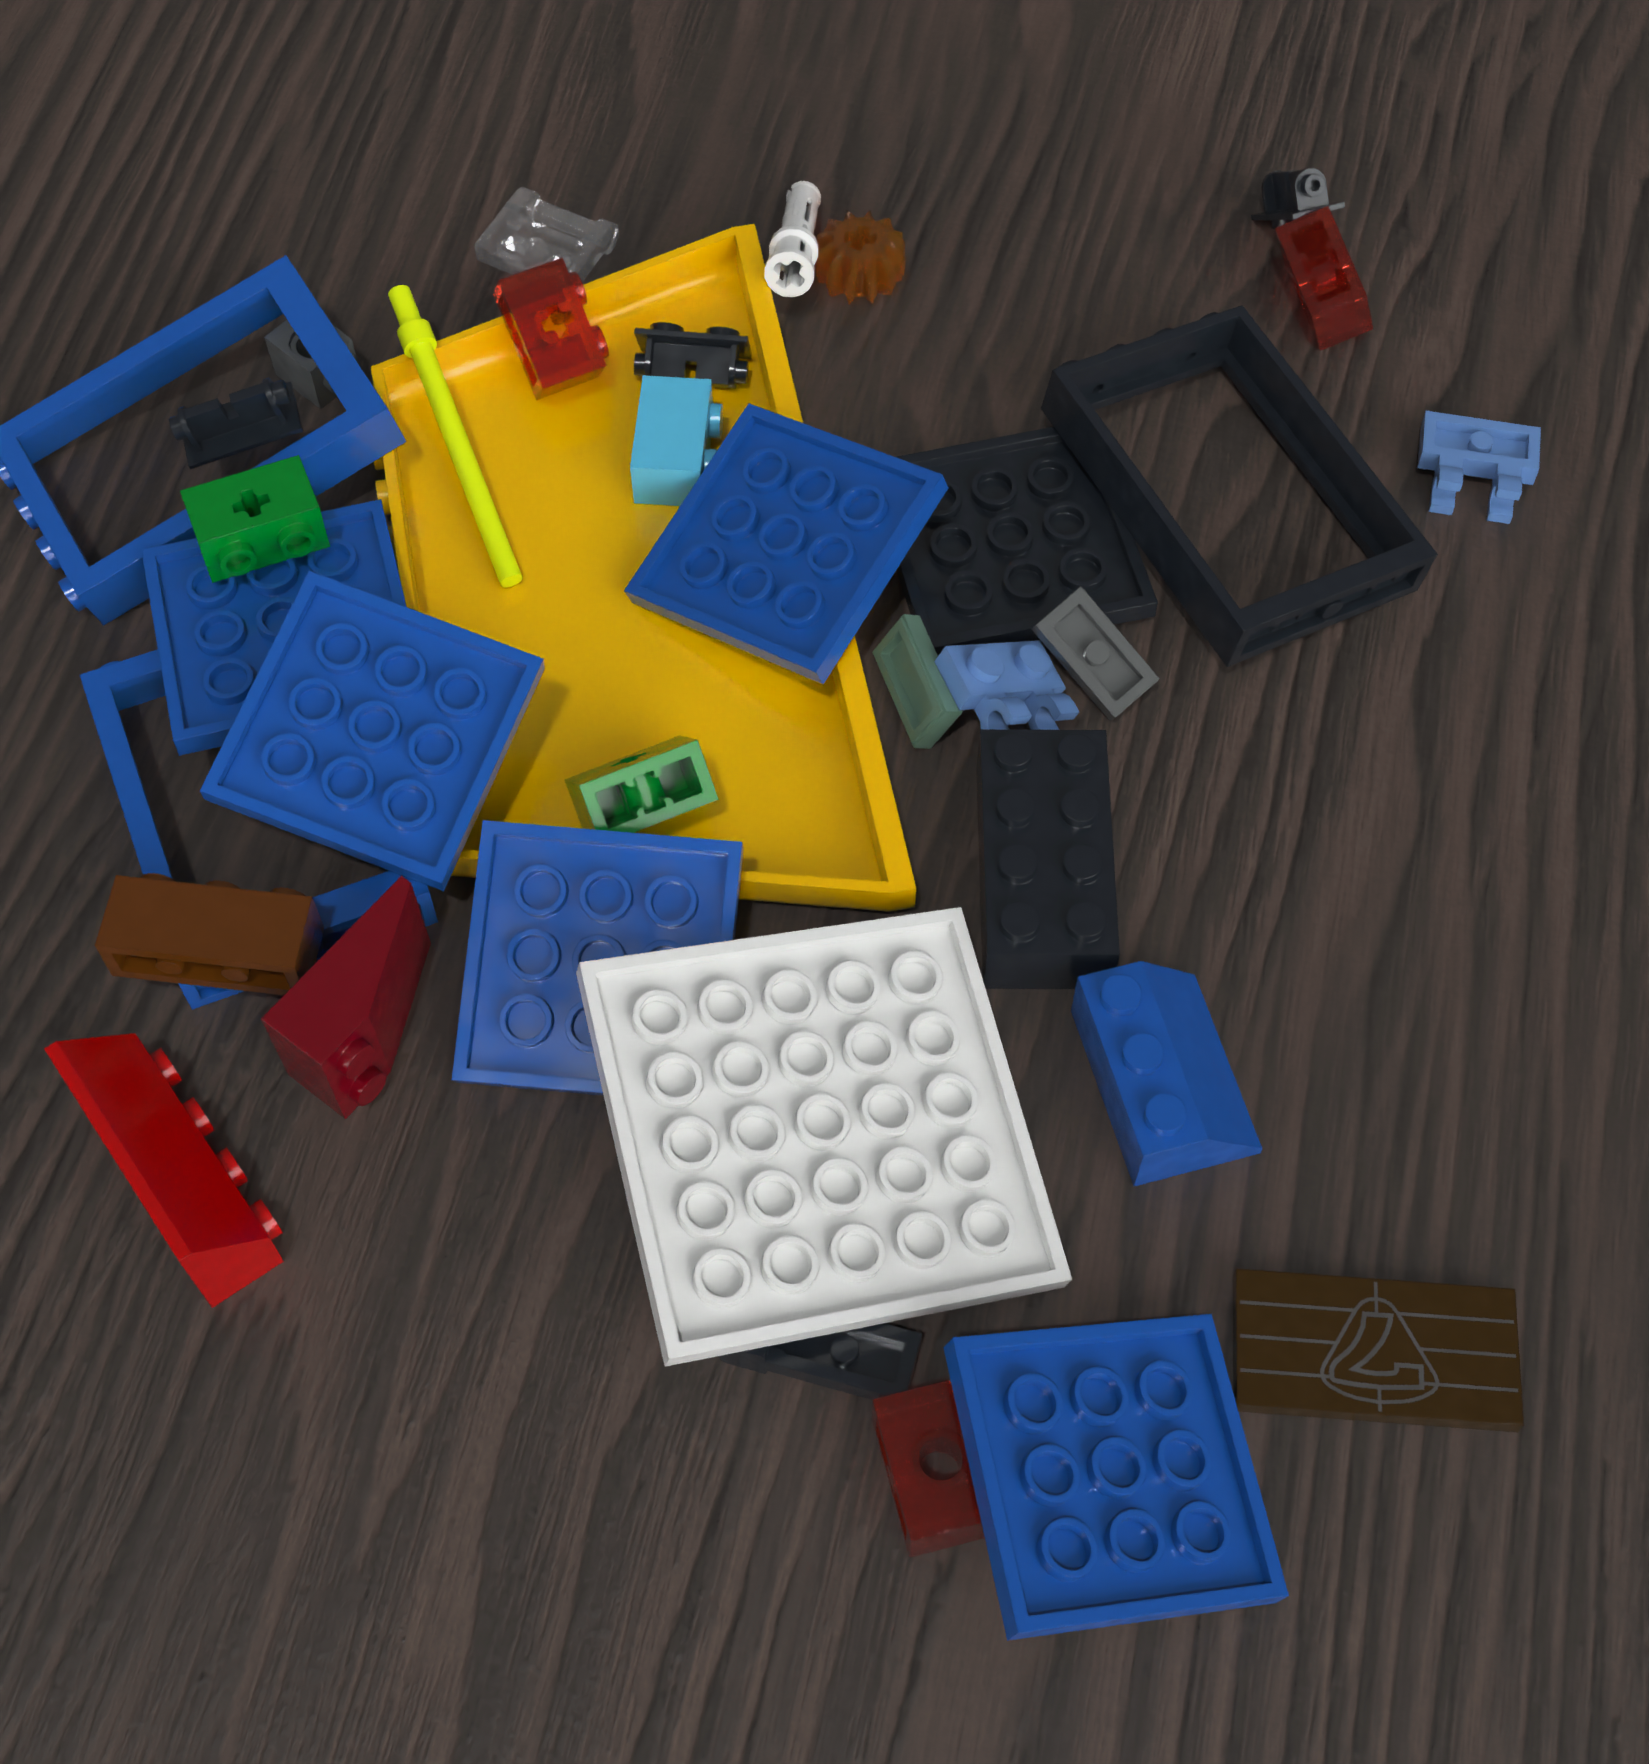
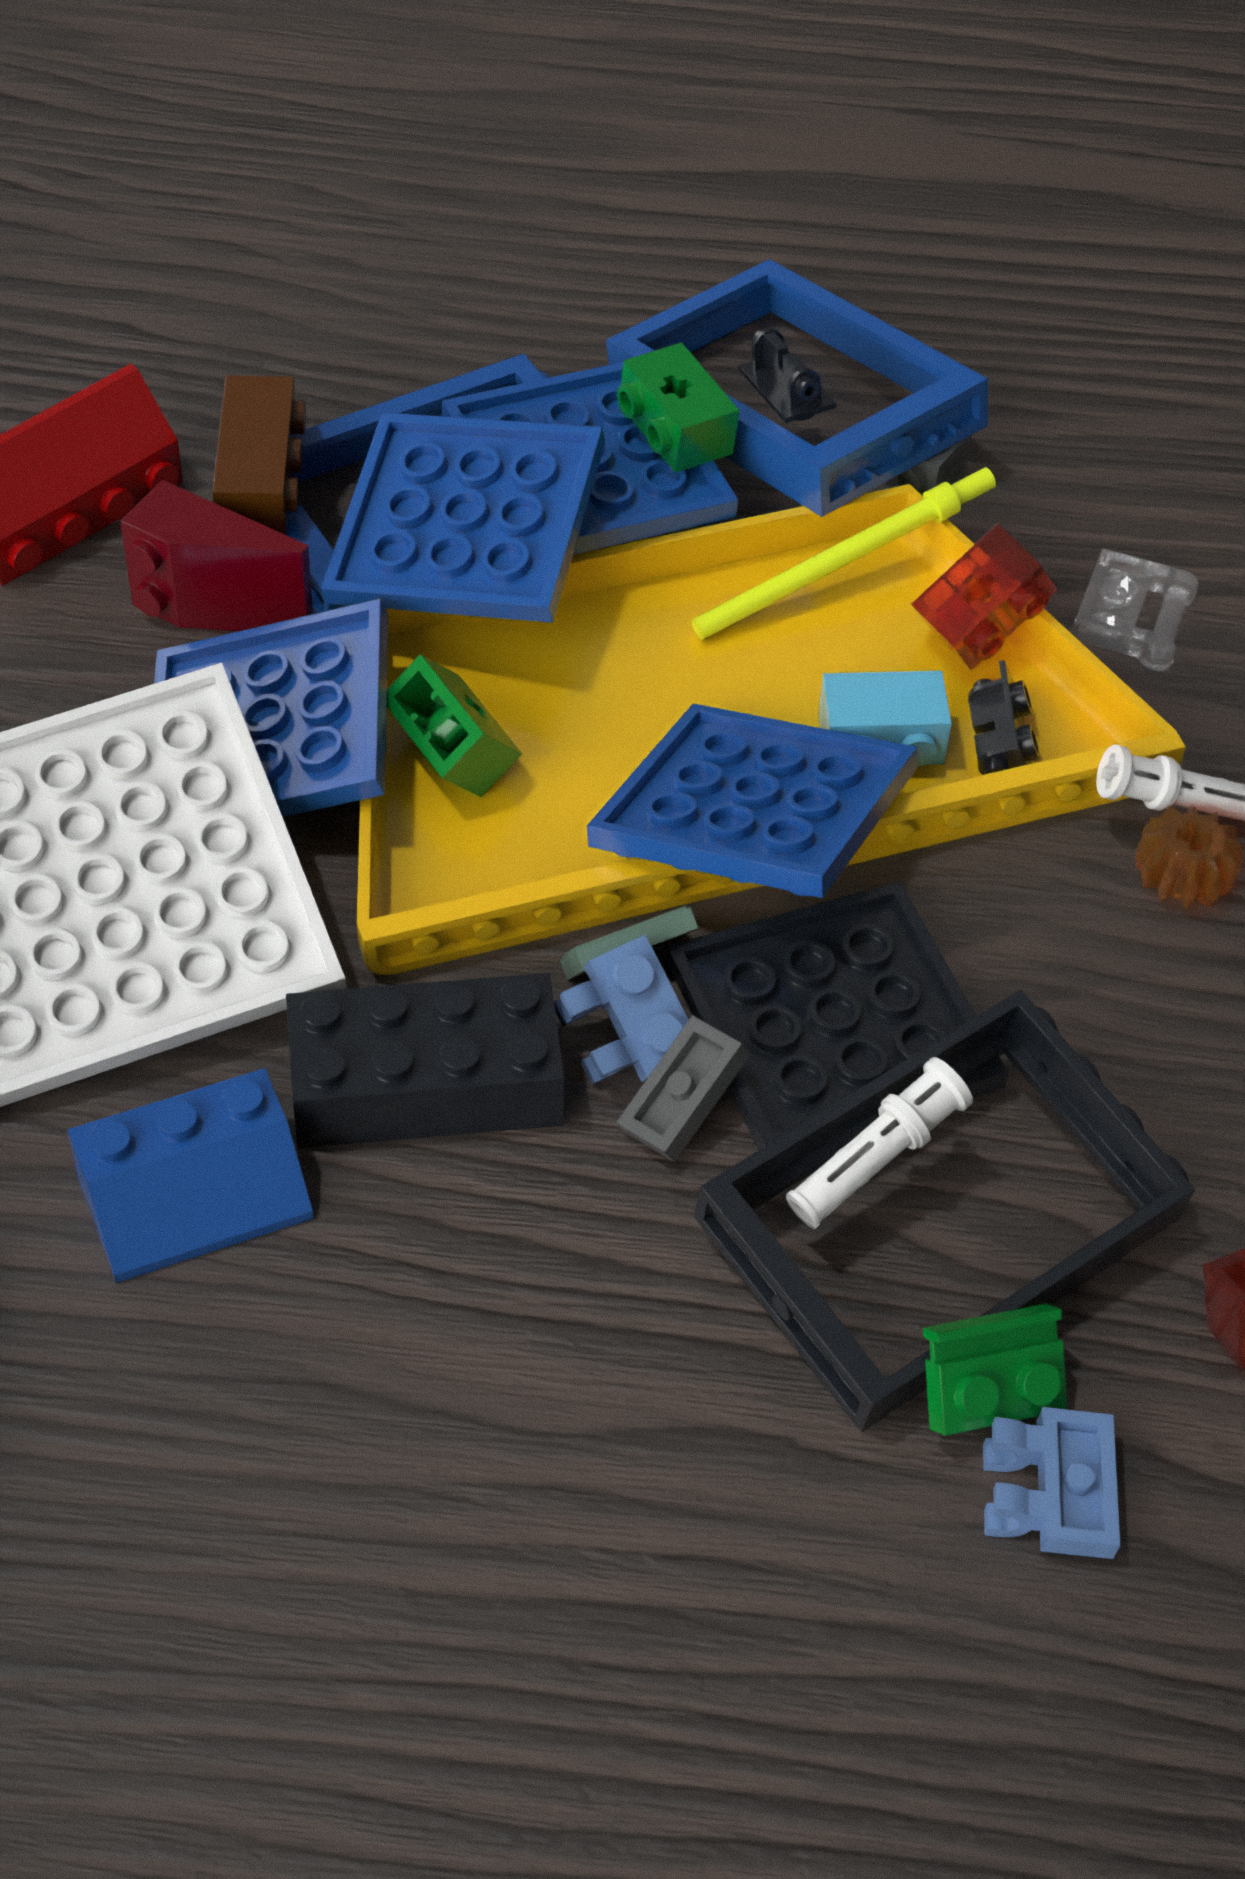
camera: 80 degrees right, 10 degrees down
(1186, 479) = (901, 1124): none -> white pin
(1396, 471) = (994, 1368): none -> green plate

